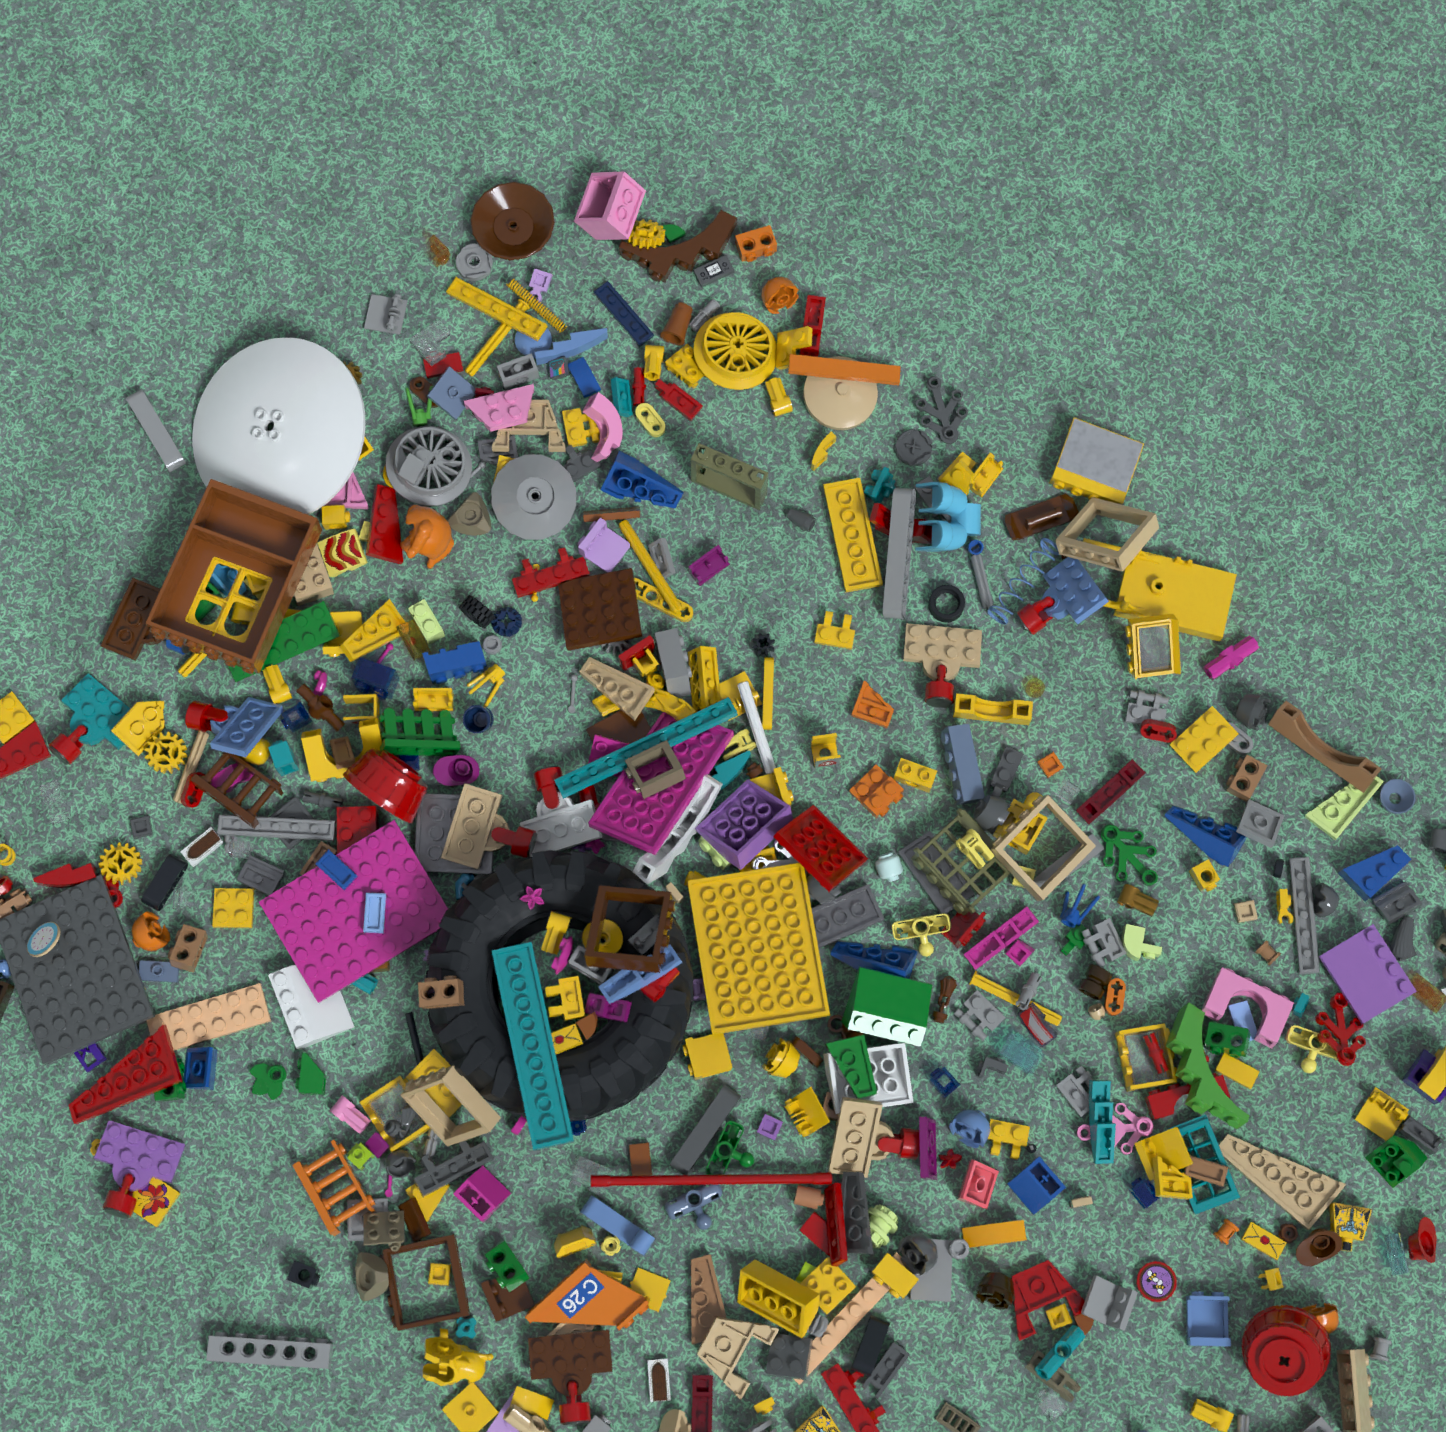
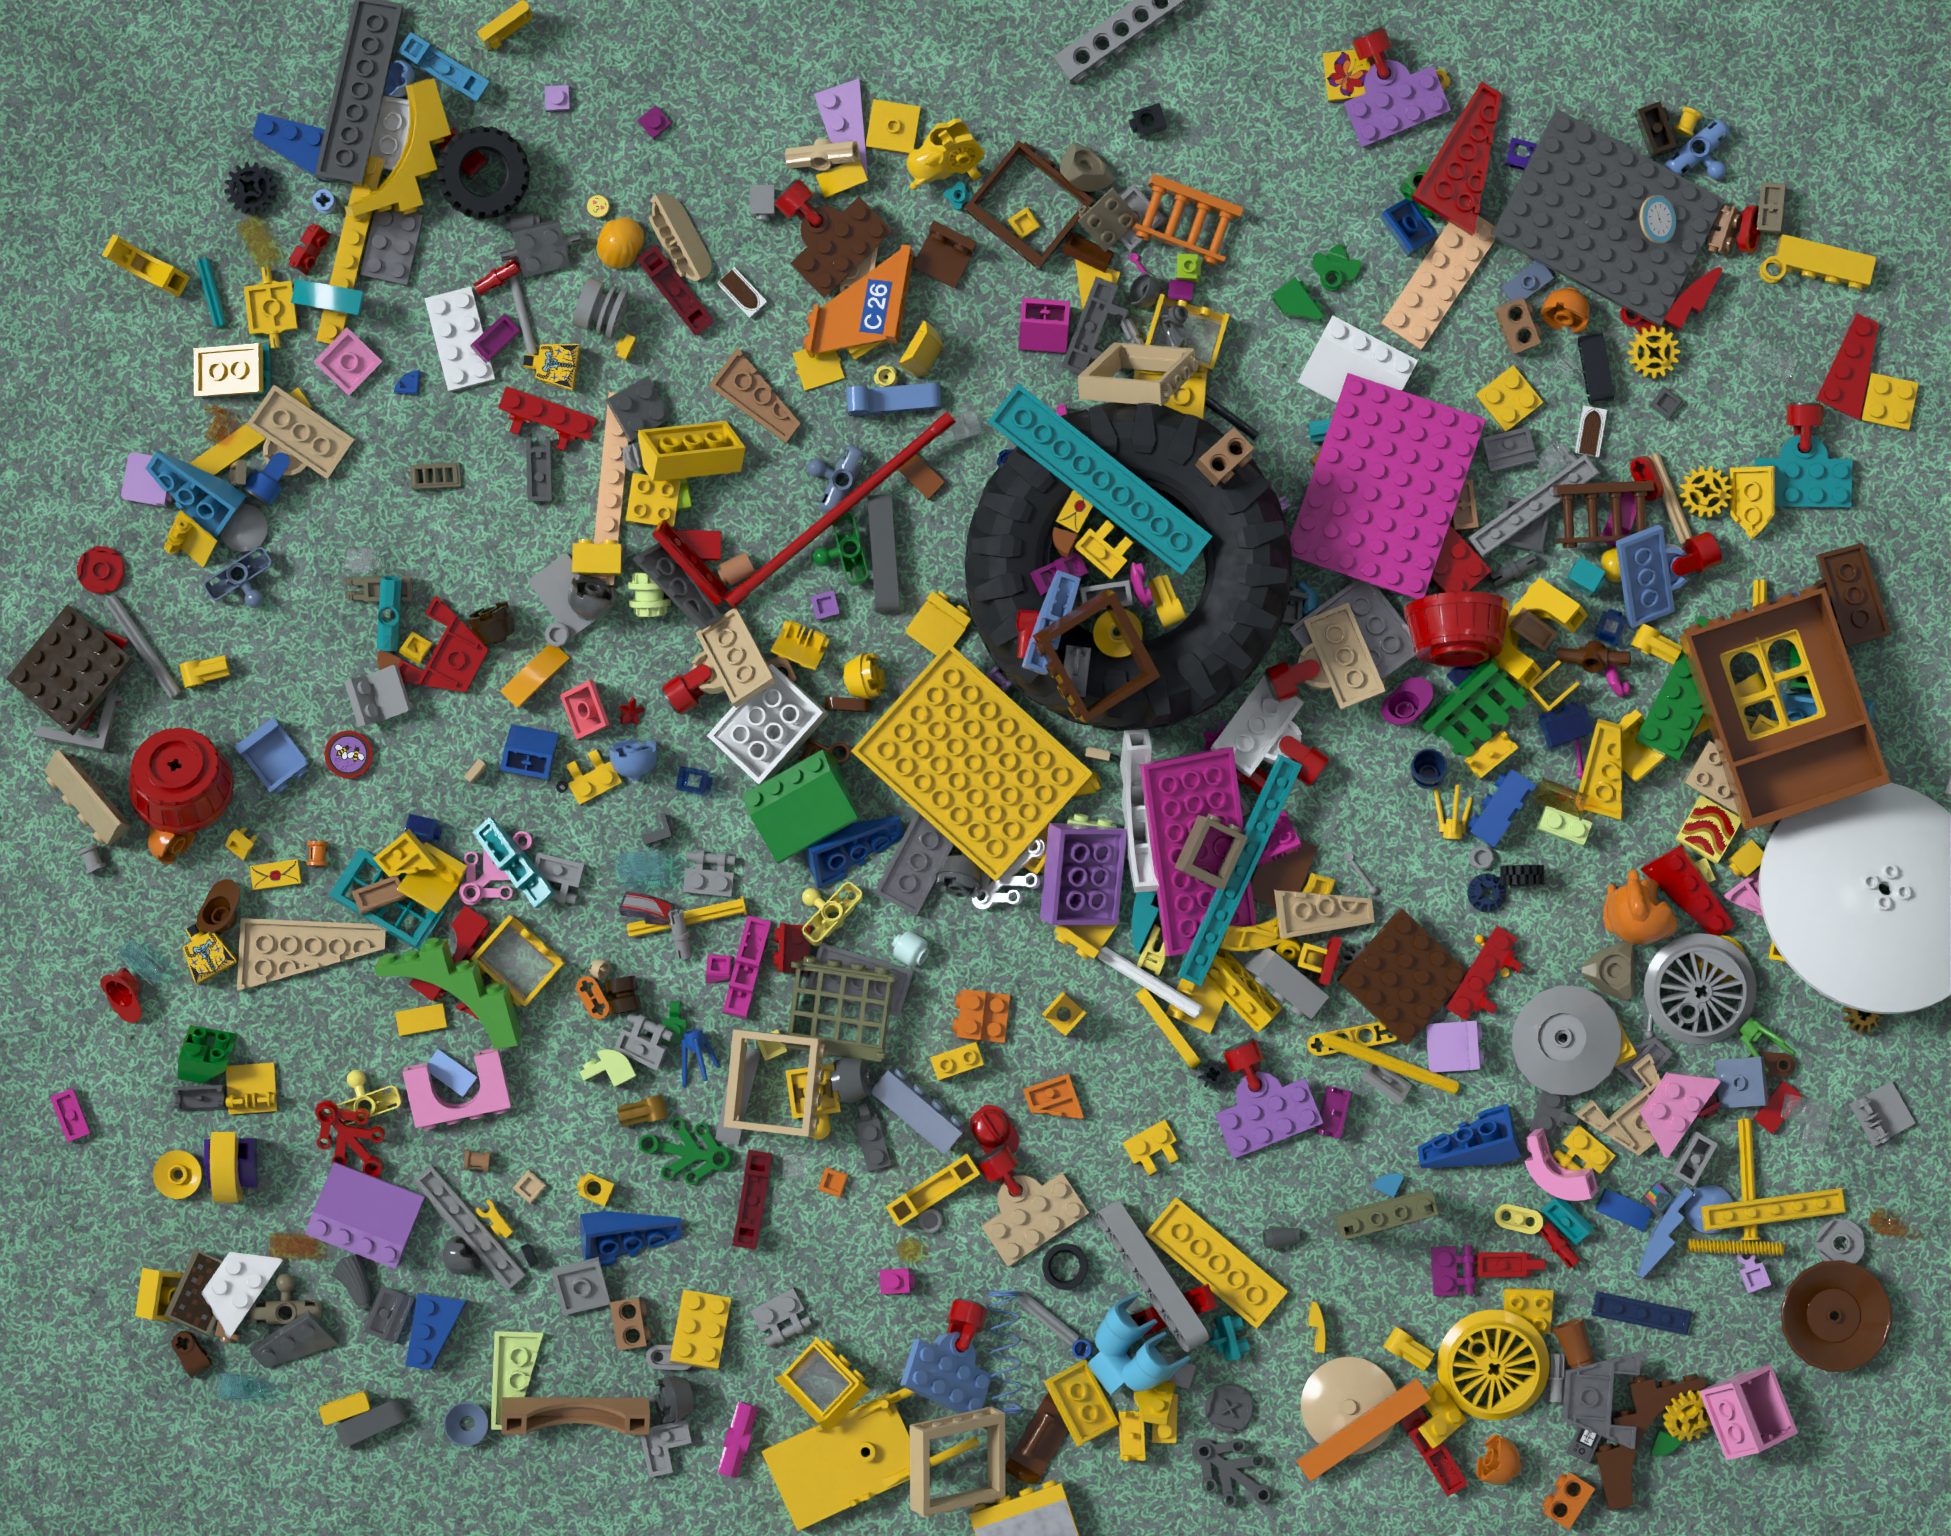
camera: 145 degrees right, 10 degrees up
(336, 870) = (1435, 507): blue tile -> none
(347, 1112) = (1233, 297): bright pink piece -> none
(374, 913) = (1364, 496): light blue tile -> none
(415, 464) = (1708, 972): light grey slope -> none
(508, 1265) = (965, 282): green brick -> none
(532, 897) = (1216, 617): dark pink plant -> none
(611, 514) = (1474, 1086): dark orange tile -> none
(653, 360) = (1569, 1287): yellow piece -> none
(694, 286) = (1590, 1393): none -> flat silver wing
(710, 500) = (1388, 1183): none -> dark azure tile
(718, 425) = (1445, 1270): none -> magenta plate
(725, 1345) = (705, 373): tan wing -> none
(747, 601) = (1264, 1106): none -> medium lavender plate
(754, 770) = (1119, 939): reddish brown plate -> none
(820, 848) = (989, 908): red plate -> none
(854, 1063) = (789, 722): green wing -> none
(870, 1345) = (570, 479): black beam -> none
(924, 719) = (993, 1128): none -> red piece
(928, 1148) = (658, 703): magenta tile -> none
(947, 986) = (761, 876): reddish brown piece -> none
(969, 848) = (848, 1026): light yellow piece -> none
(1001, 516) = (1081, 1402): none -> yellow tile
(1007, 693) = (930, 1220): none -> light grey tile
(1057, 675) = (896, 1281): none -> dark pink bracket
(1155, 1053) = (511, 970): red pin -> none
(1158, 730) = (752, 1302): red beam -> none
(1228, 1034) = (454, 1043): green brick -> none
(1284, 691) = (658, 1442): none -> light grey plate
(1293, 1232) = (251, 900): reddish brown plate -> none
(1300, 1004) = (407, 1133): teal plate -> none

